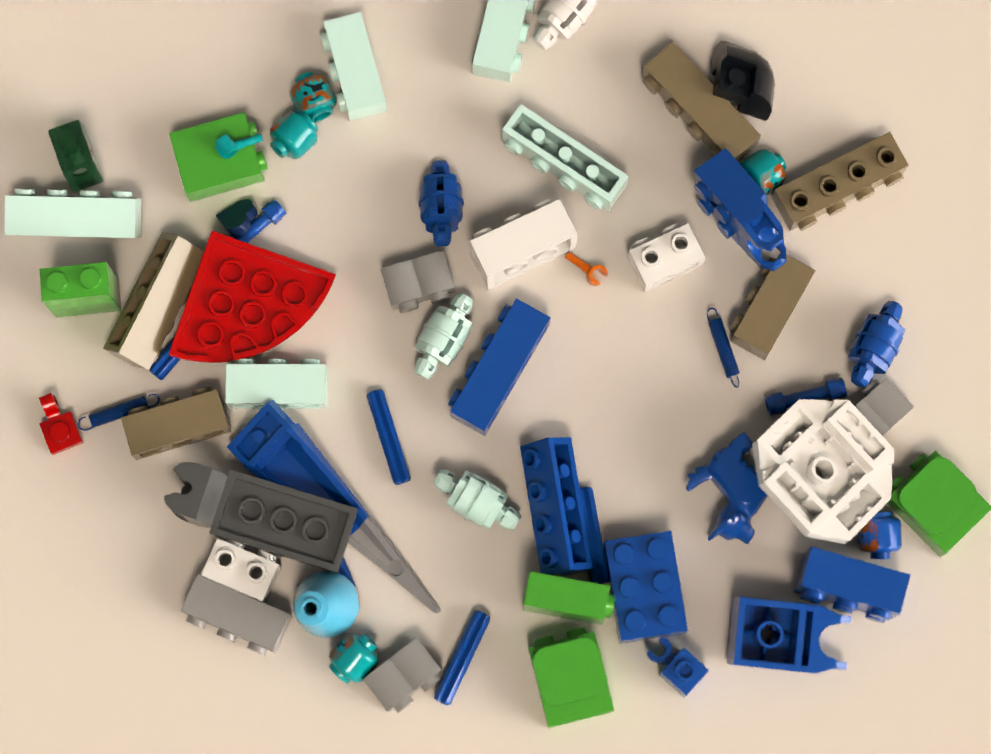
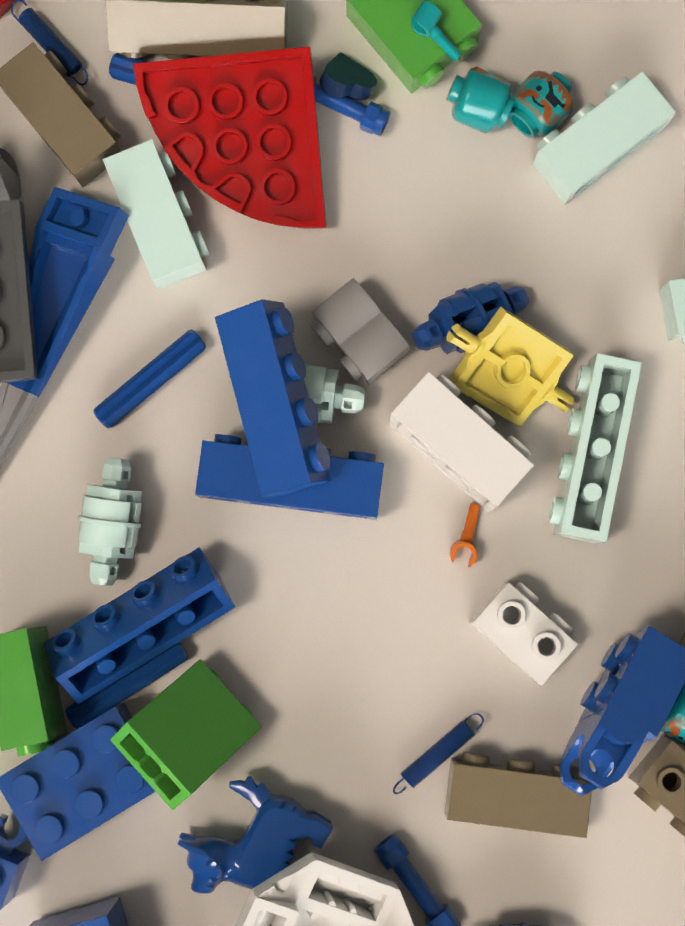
camera: 70 degrees right, 5 degrees up
(444, 348) = (273, 398): none -> blue brick
(486, 190) = (510, 367): none -> light yellow plate
(642, 501) = (185, 733): none -> bright green brick

